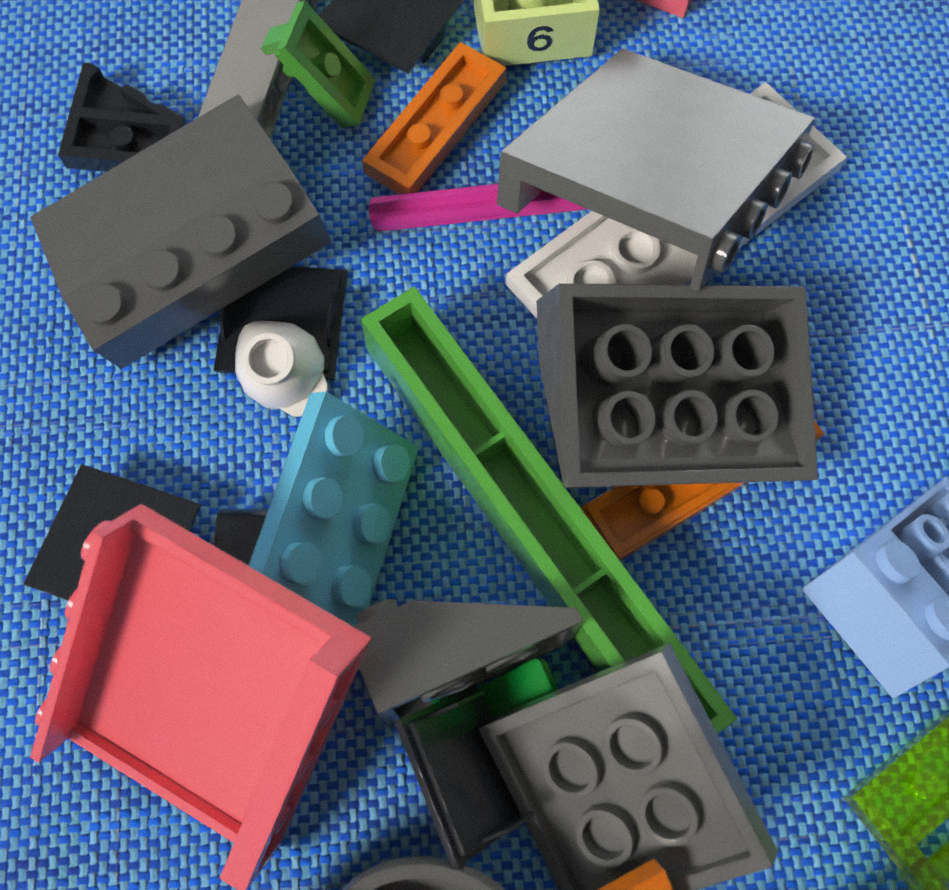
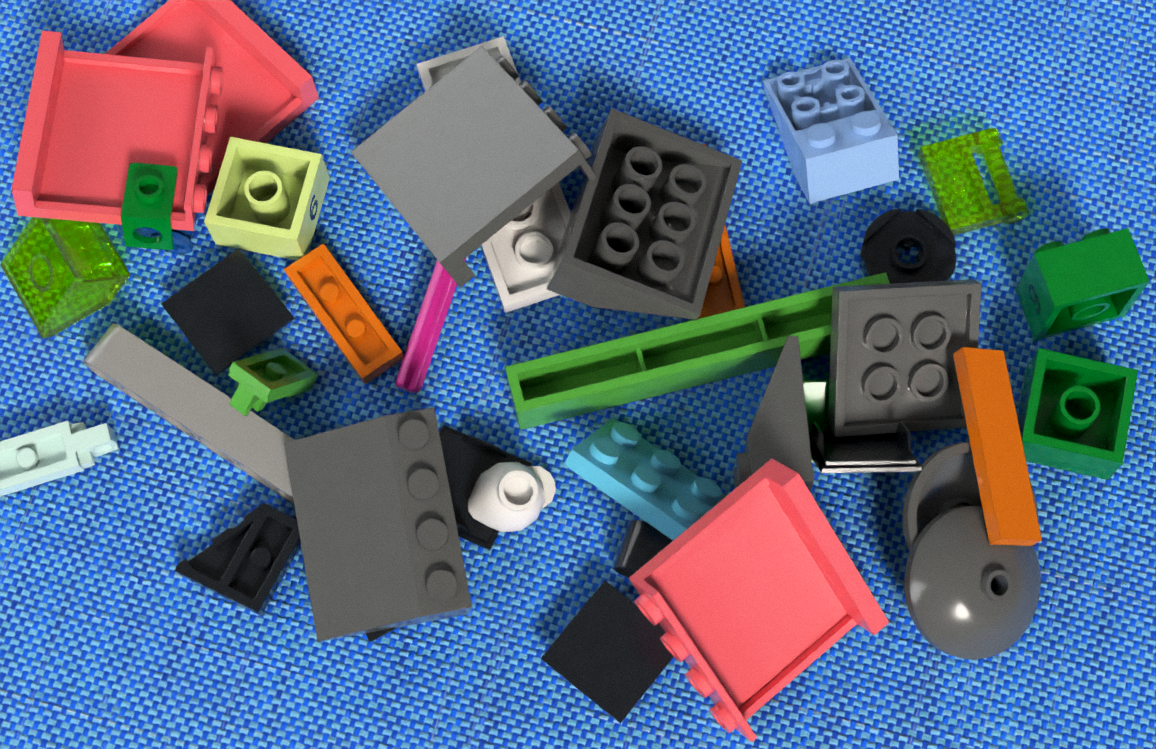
camera: 65 degrees left, 0 degrees up
(832, 751) = (908, 230): none -> black plate

